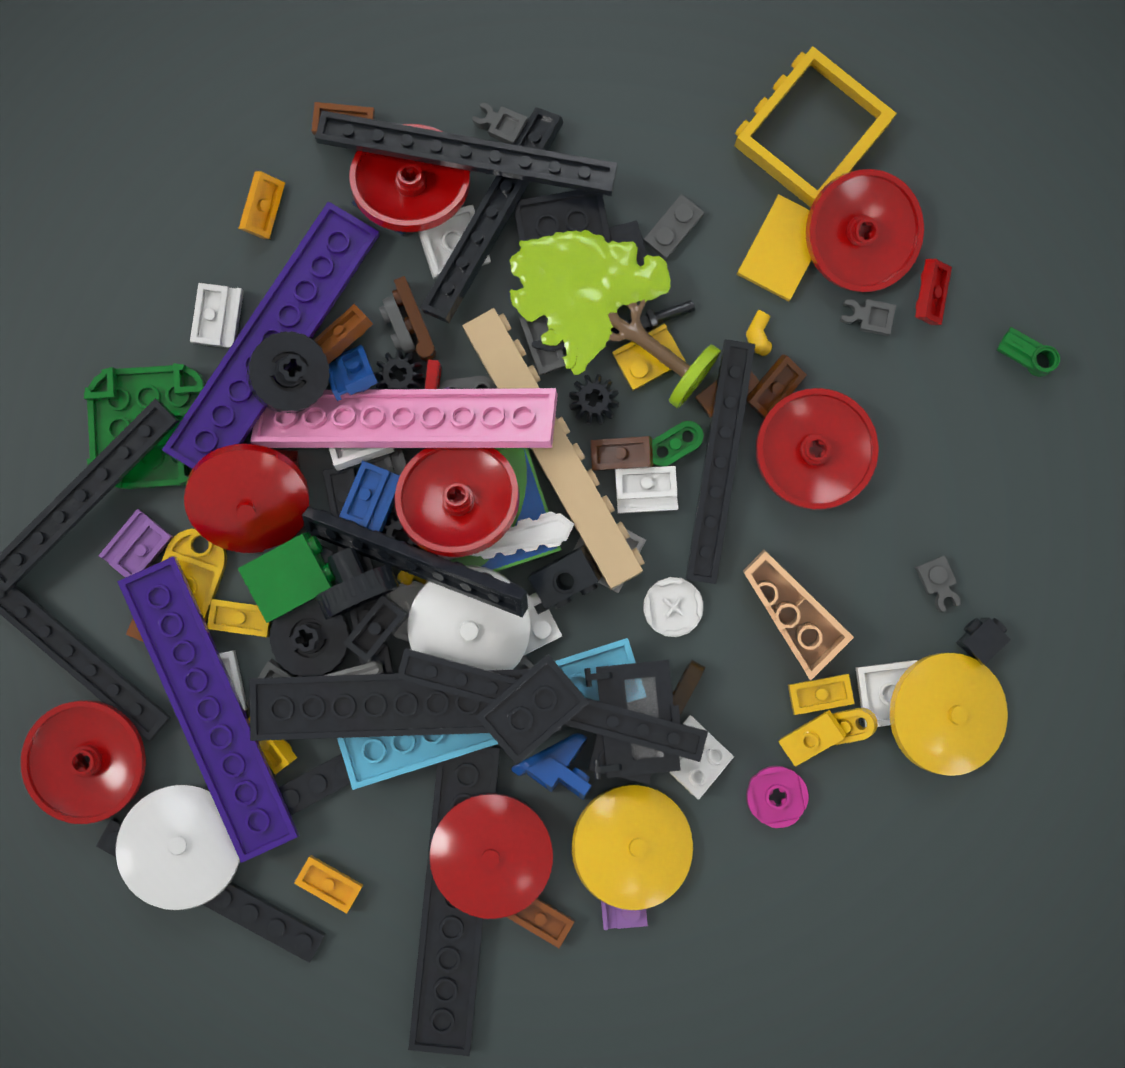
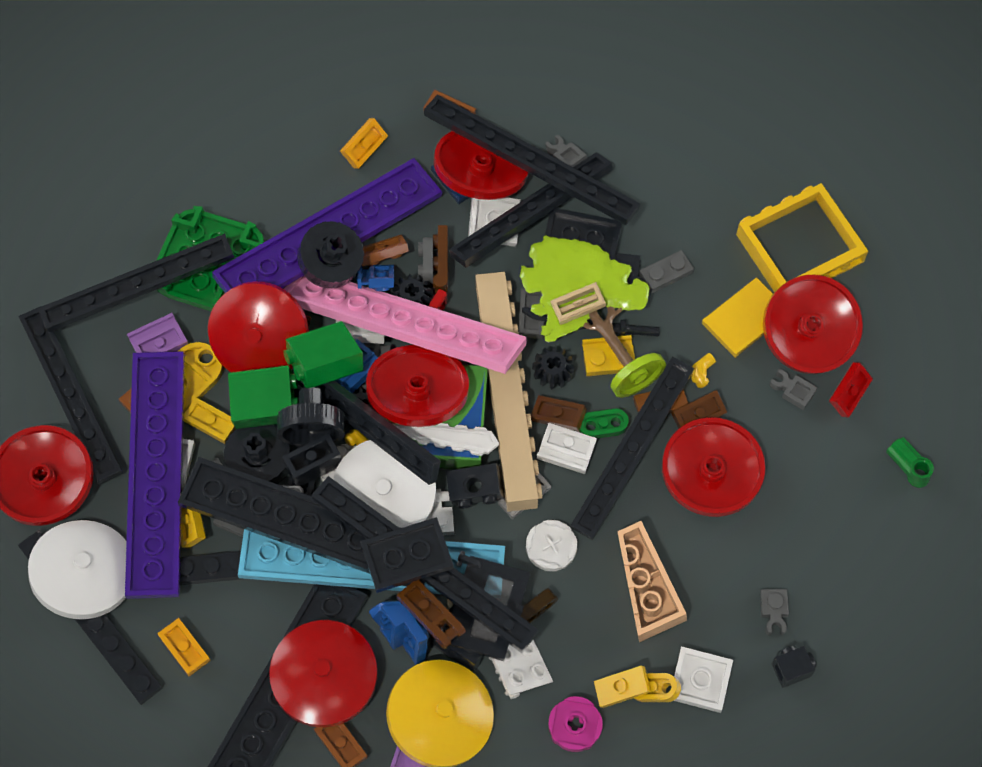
camera: 20 degrees right, 20 degrees down
(216, 315) = (295, 203): white plate -> none
(335, 503) = (323, 355): none -> green brick
(584, 760) = (430, 613): none -> reddish brown plate
(585, 308) = (581, 311): none -> tan tile
(821, 694) = (634, 654): yellow plate -> none
(948, 714) = (742, 712): yellow dish -> none

